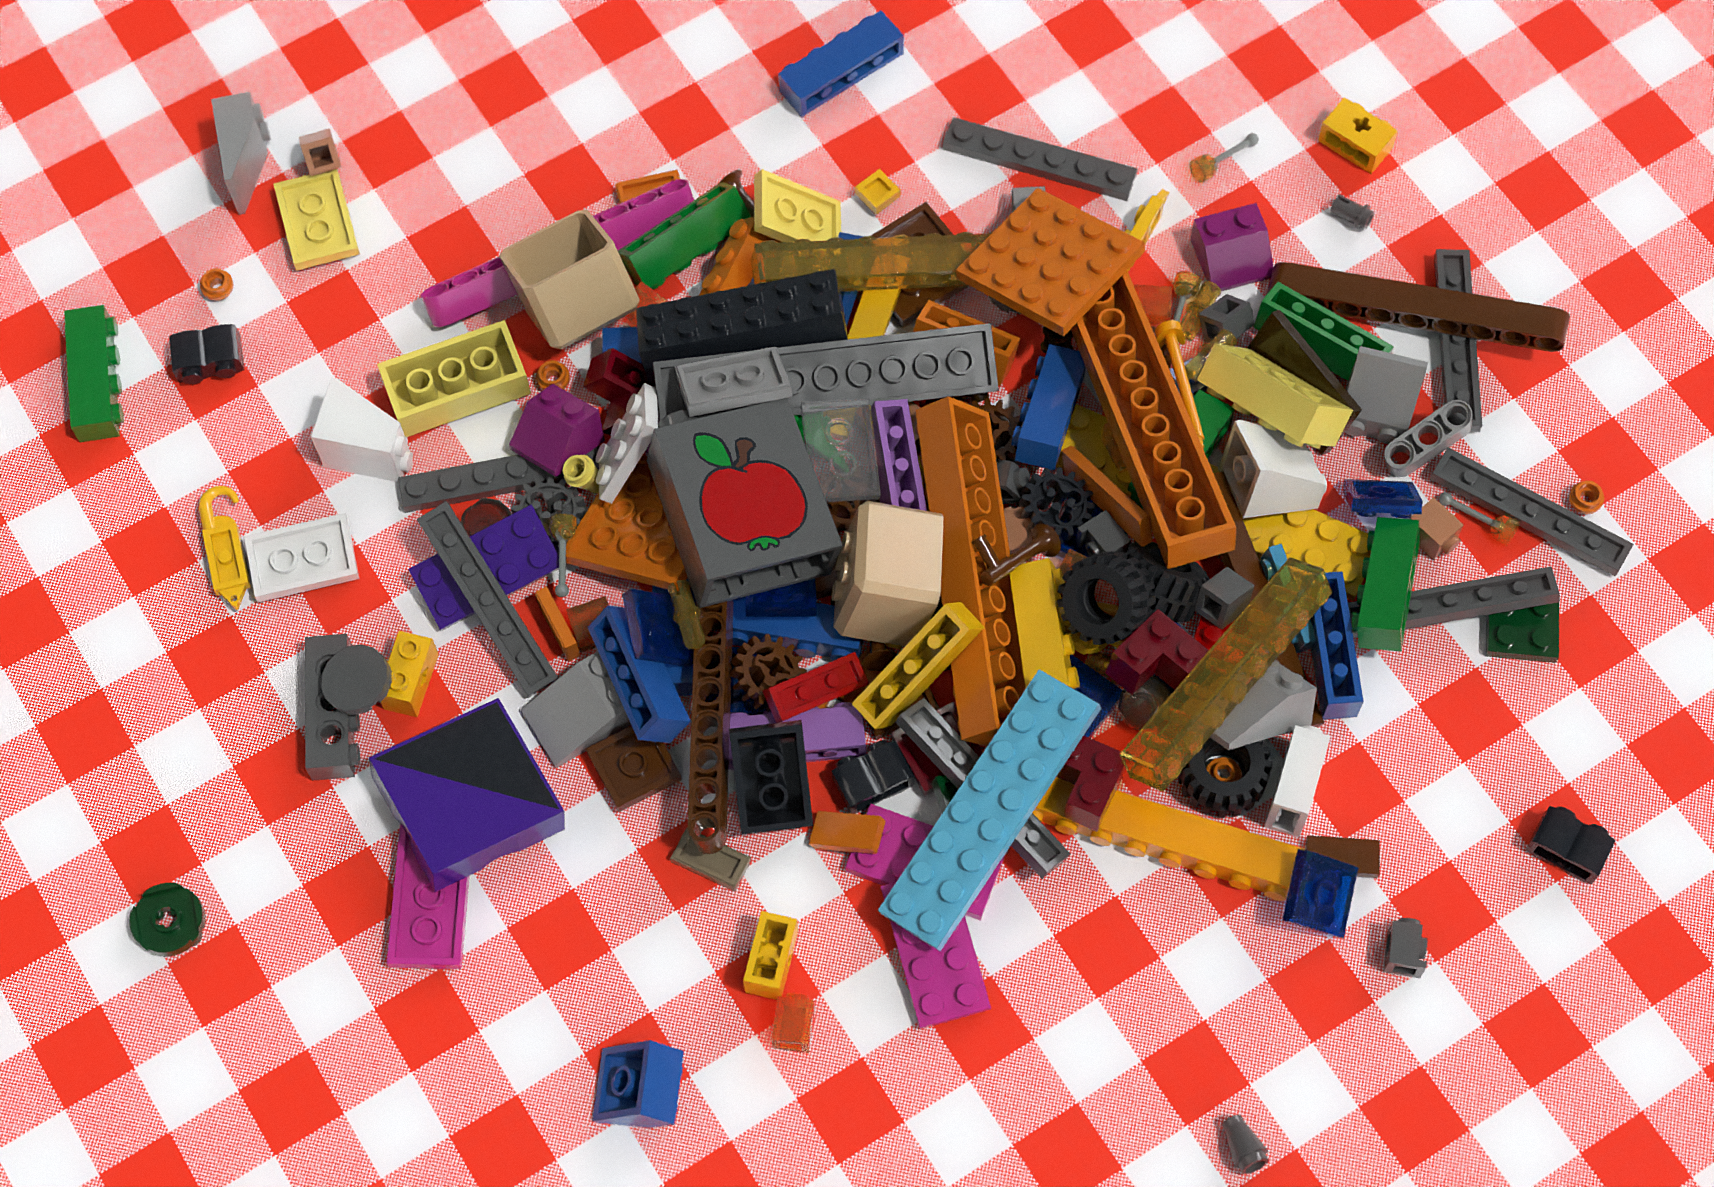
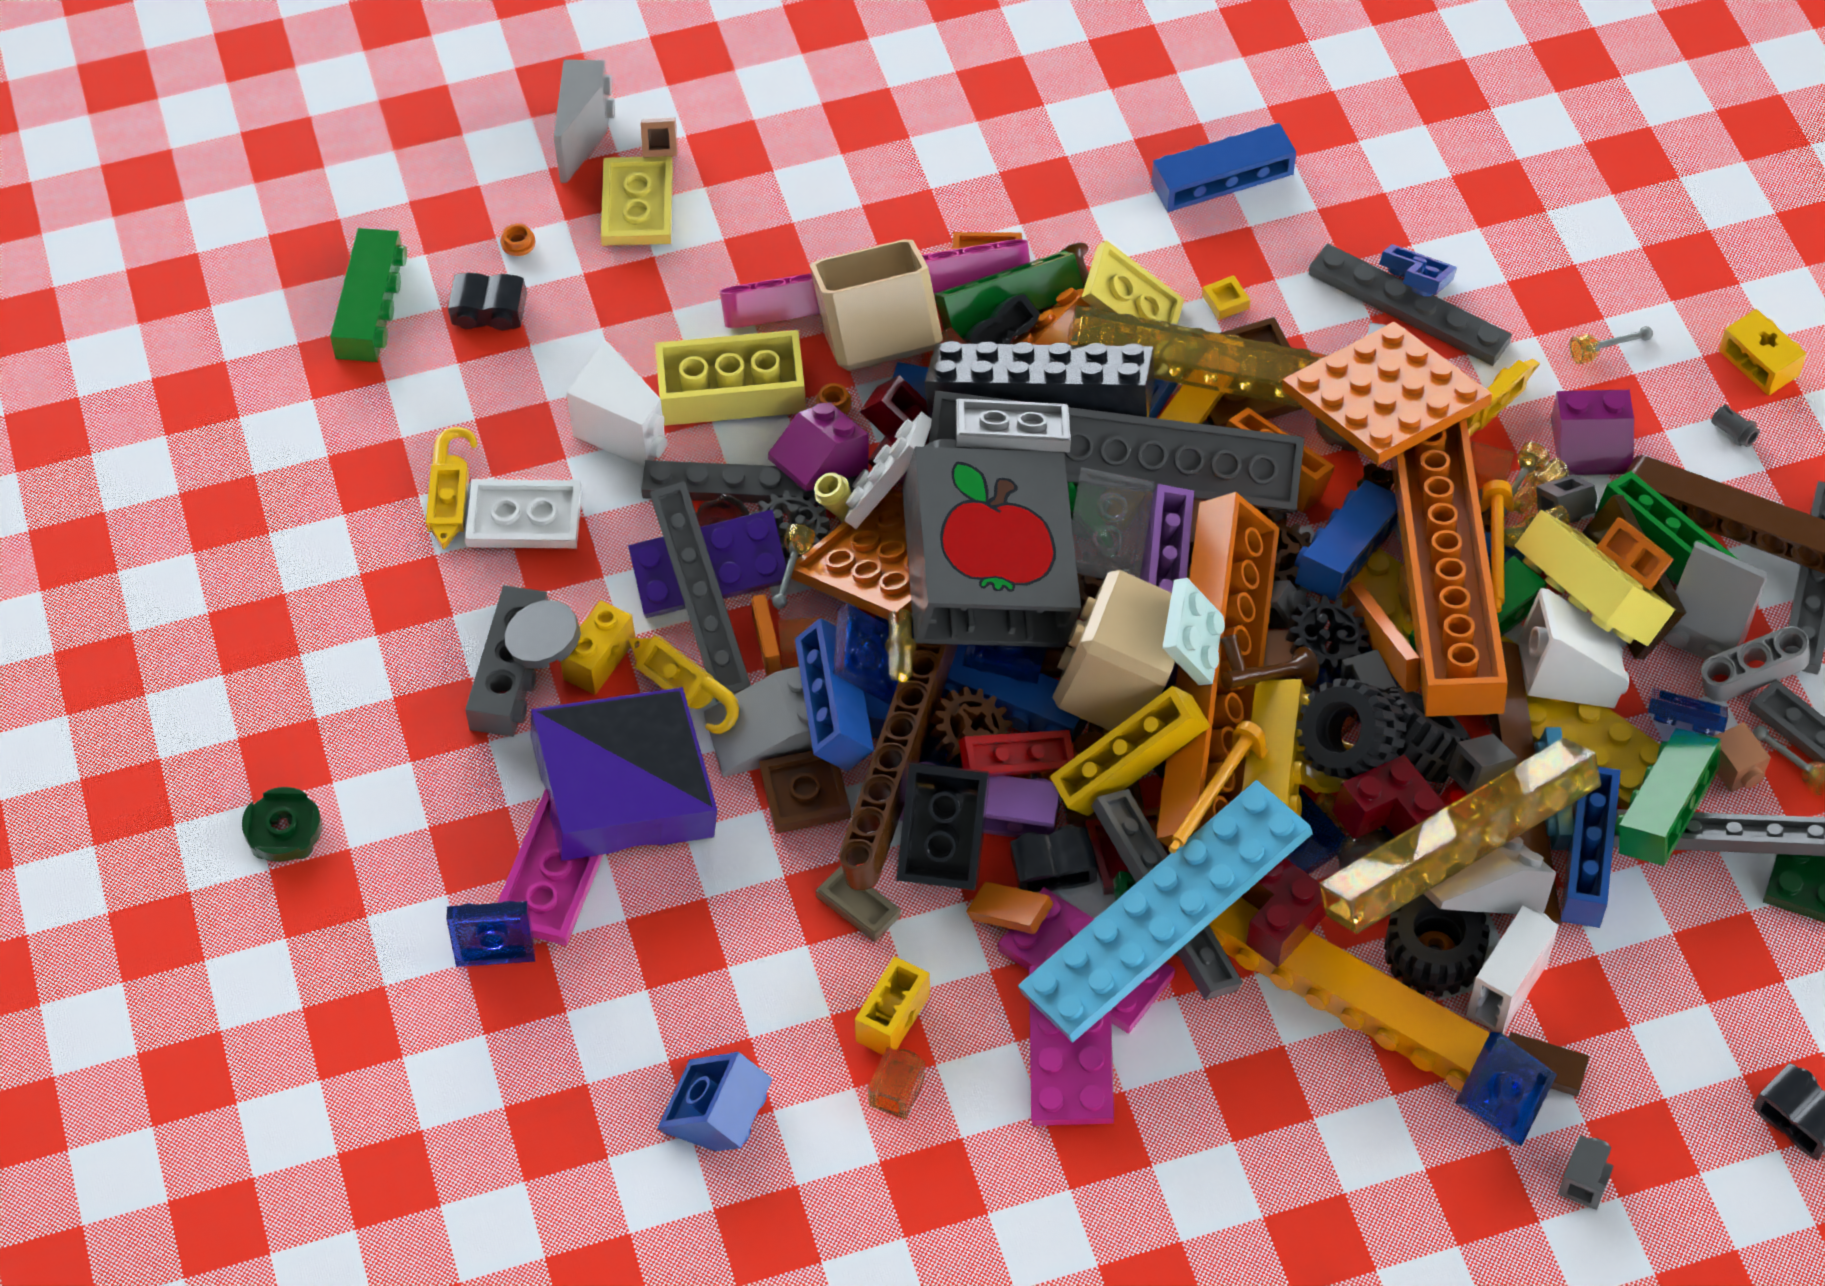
camera: 15 degrees right, 10 degrees down
(392, 980) = (491, 933): none -> clear blue plate
(491, 682) = (674, 670): none -> yellow plate
(692, 265) = (1007, 320): none -> black brick
(949, 545) = (1193, 632): none -> light aqua plate
(1015, 629) = (1246, 738): none -> light orange piece
(1049, 127) = (1419, 271): none -> blue plate
(1305, 365) = (1635, 553): none -> orange slope

